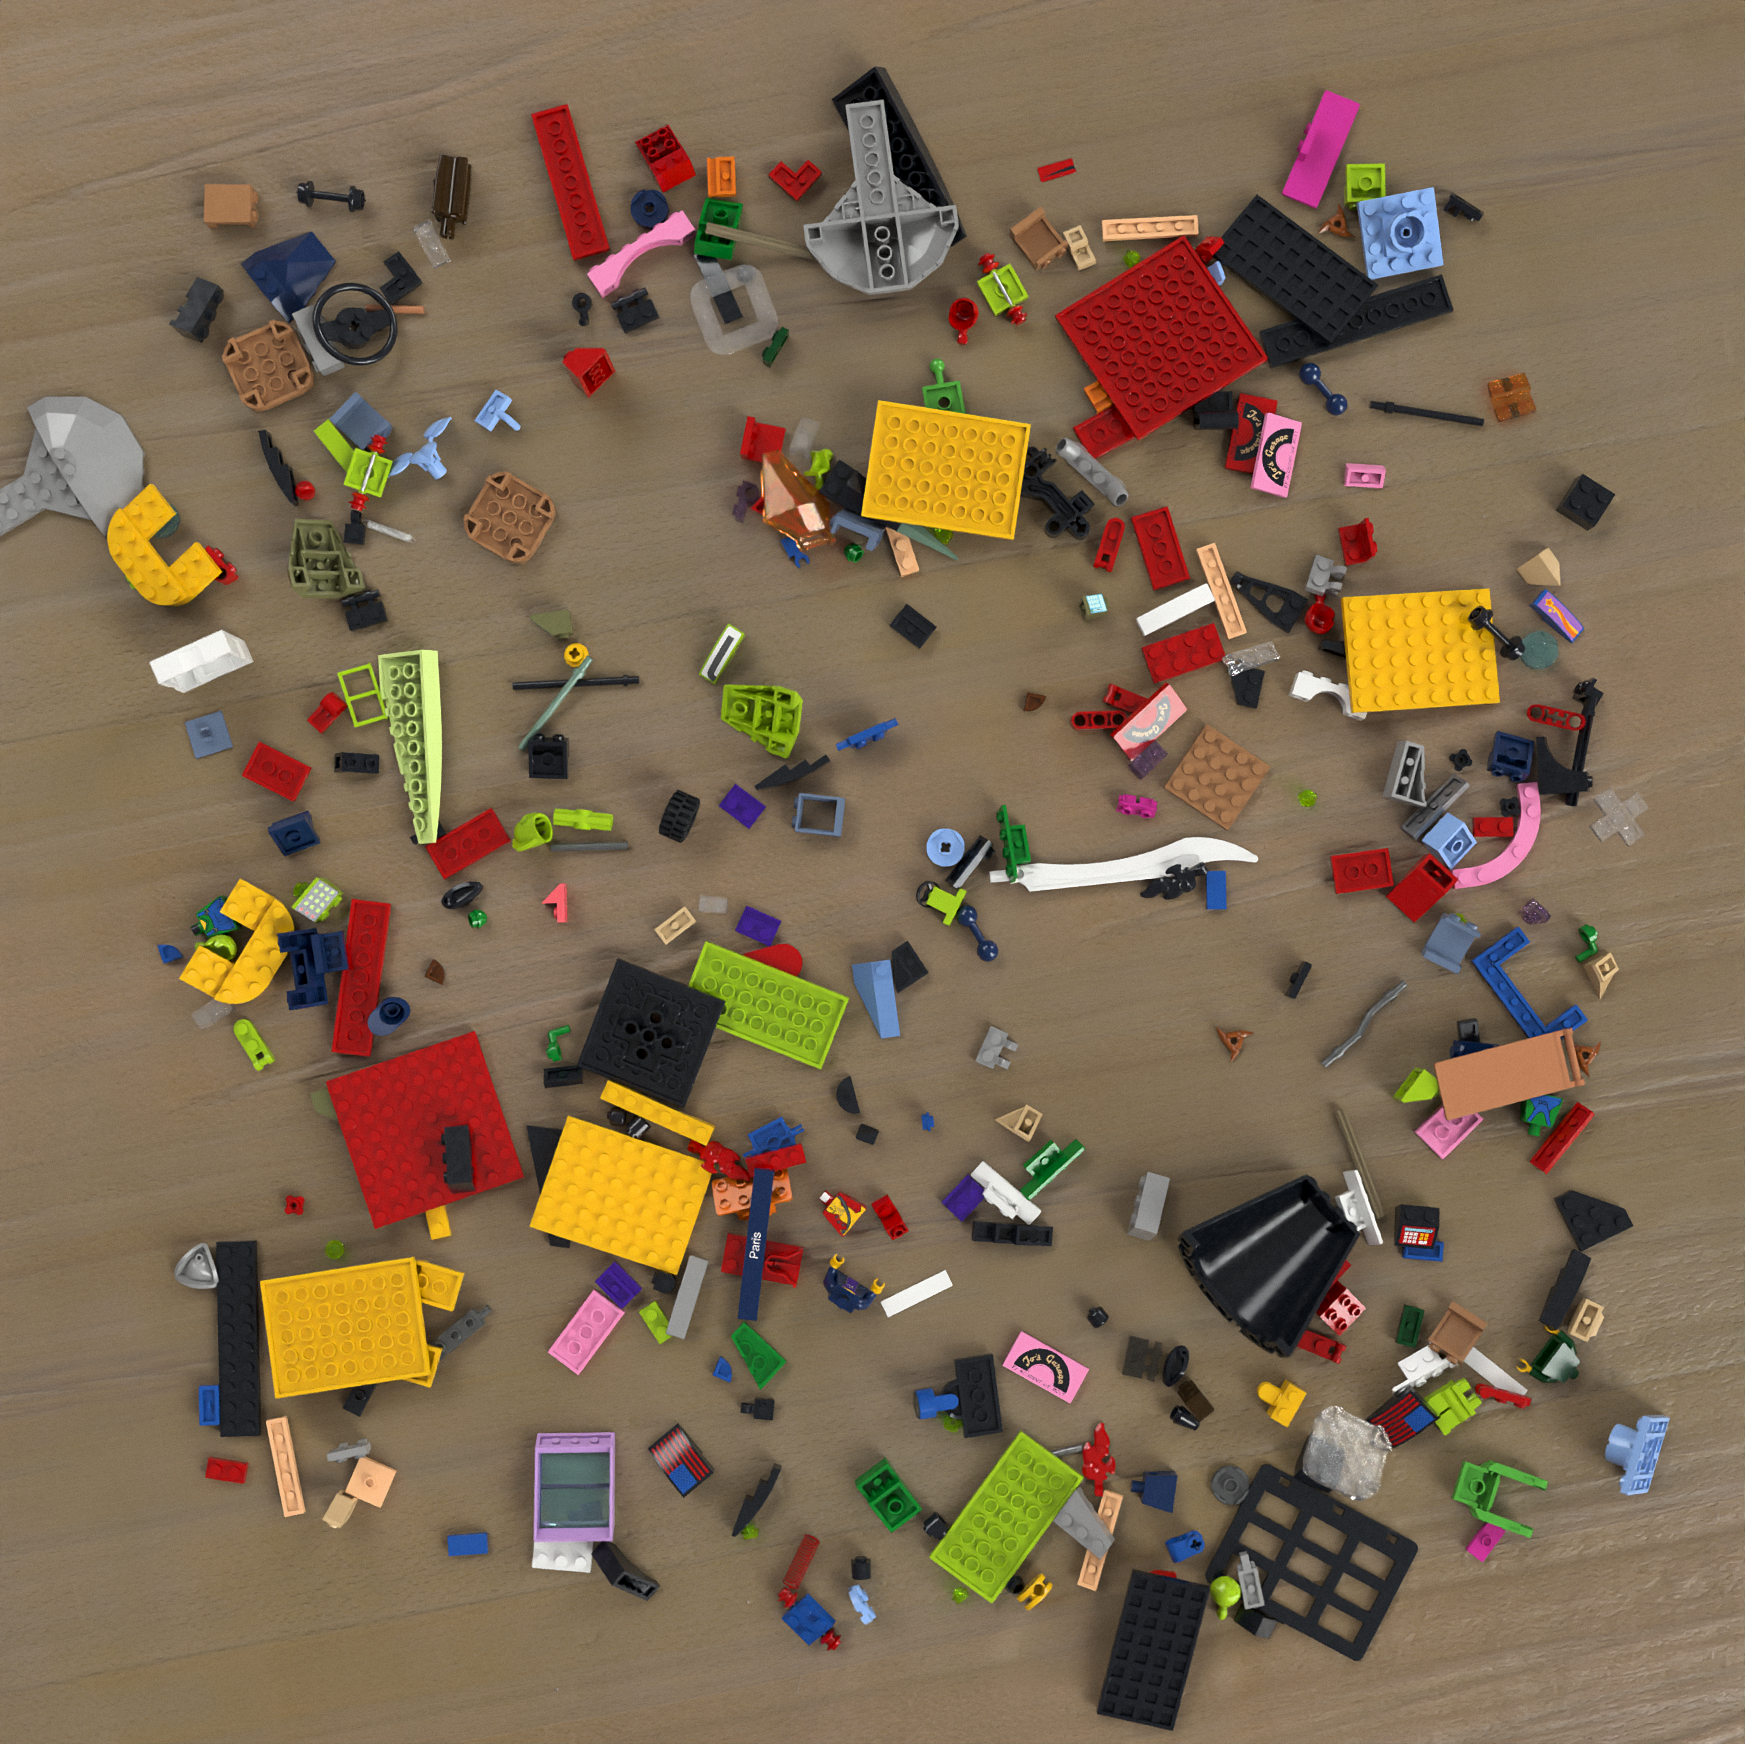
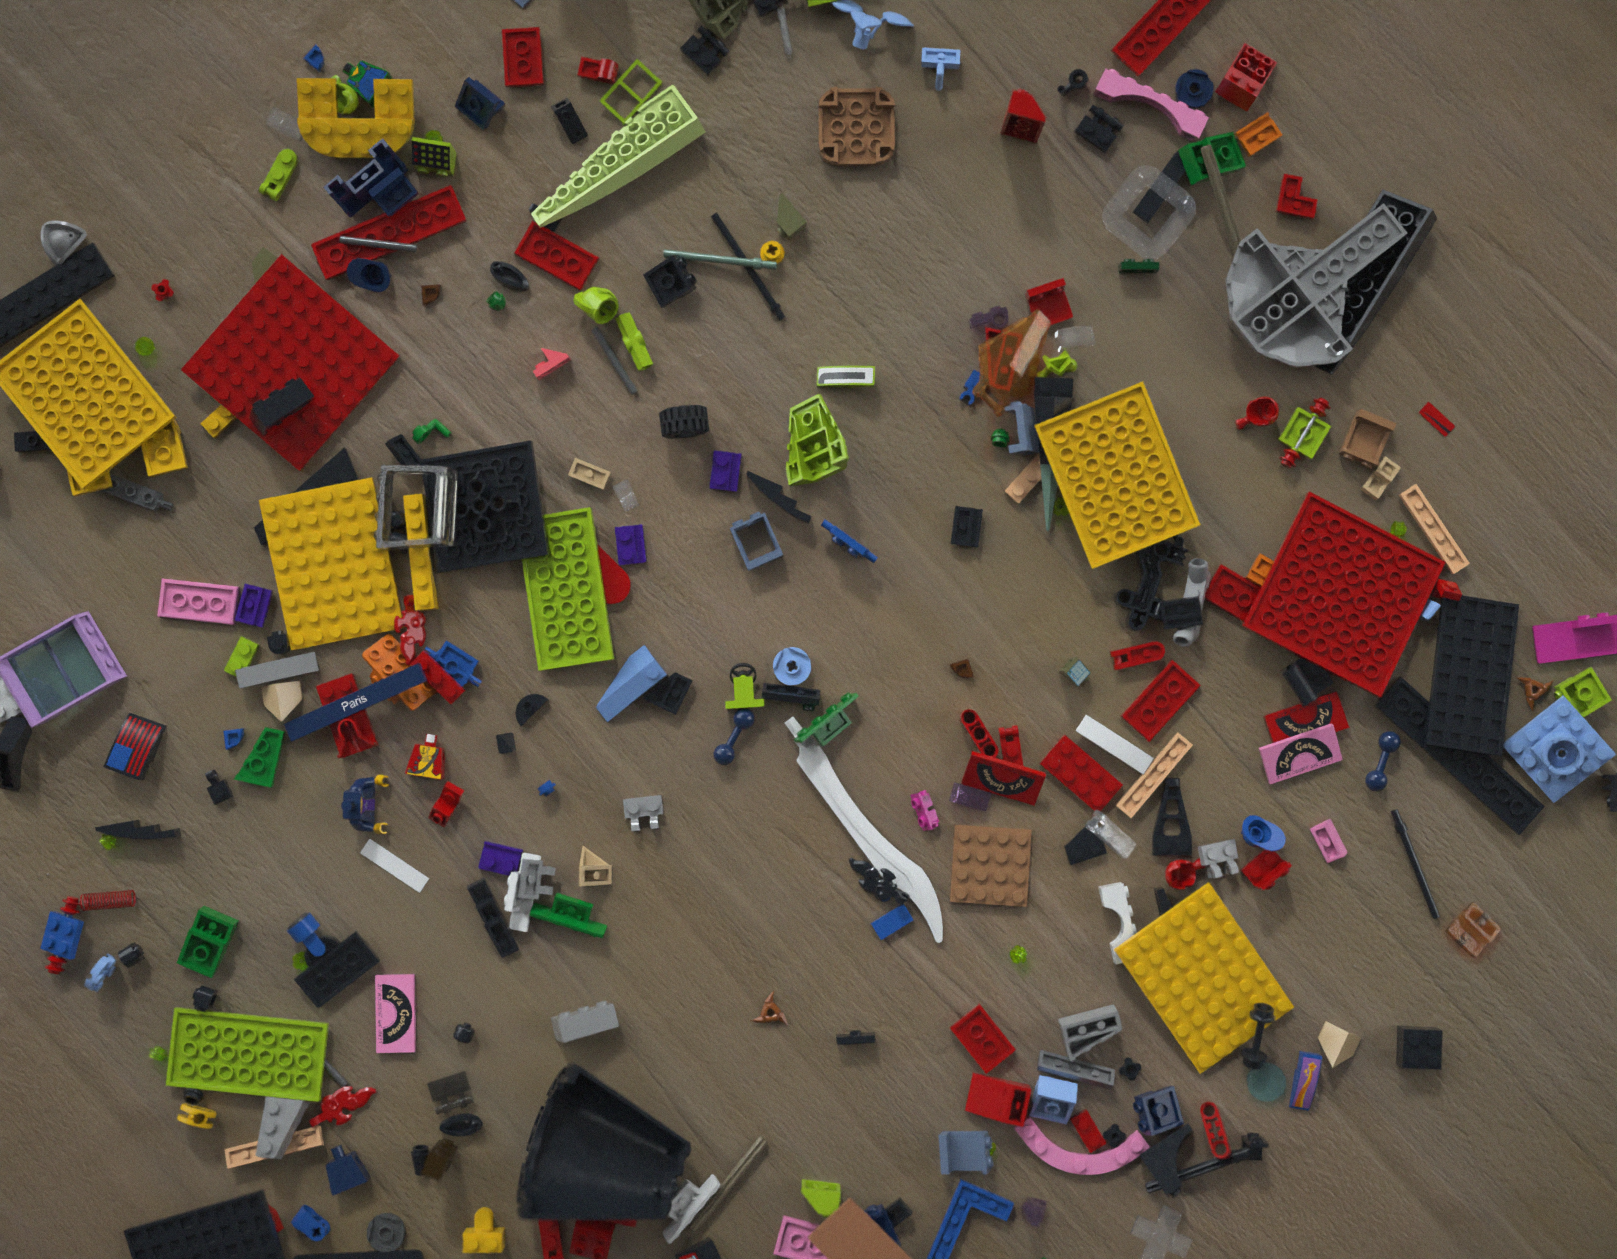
camera: 55 degrees right, 0 degrees up
(366, 992) = (378, 244): none -> dark grey bar
(633, 1068) = (443, 507): none -> clear smoke windscreen
(714, 1307) = (282, 698): none -> tan slope
(949, 391) = (1188, 437): bright green plate -> none
(999, 1181) = (531, 878): none -> light grey plate
(1096, 485) = (1181, 612): none -> black plate
(1325, 528) = (1262, 834): none -> blue piece
(1390, 996) = (888, 1125): dark grey bar -> none

